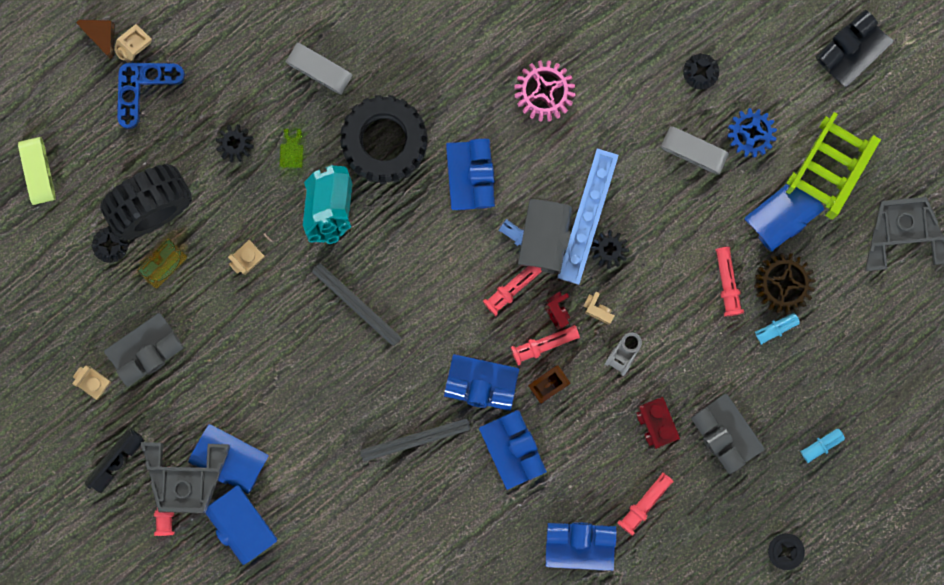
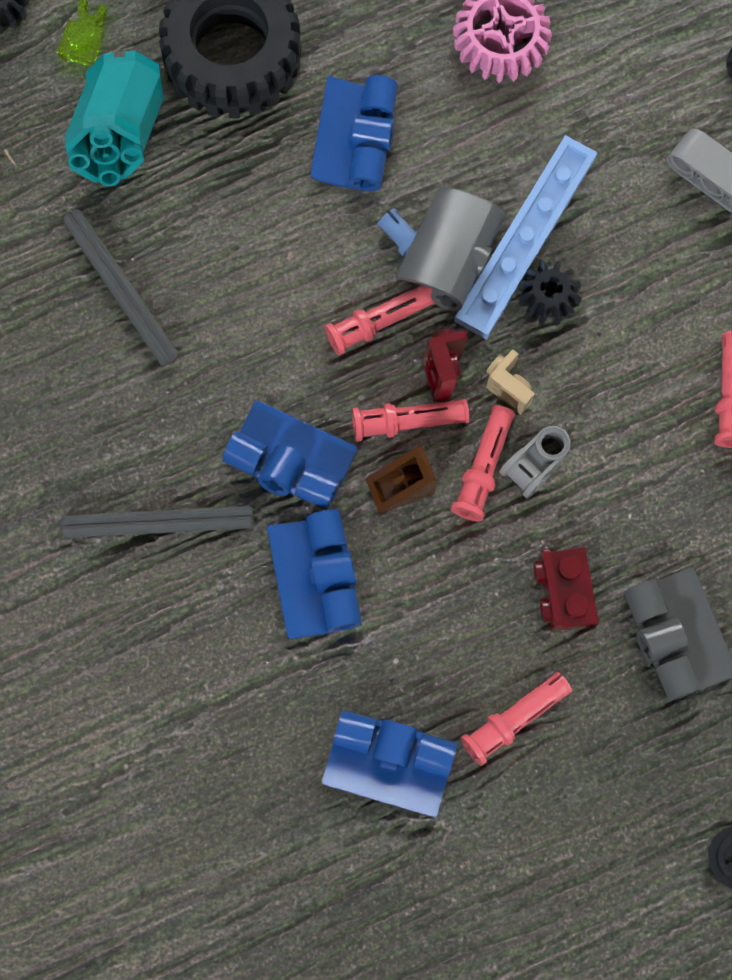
camera: 10 degrees right, 10 degrees down
(593, 371) = (479, 479): none -> coral pin

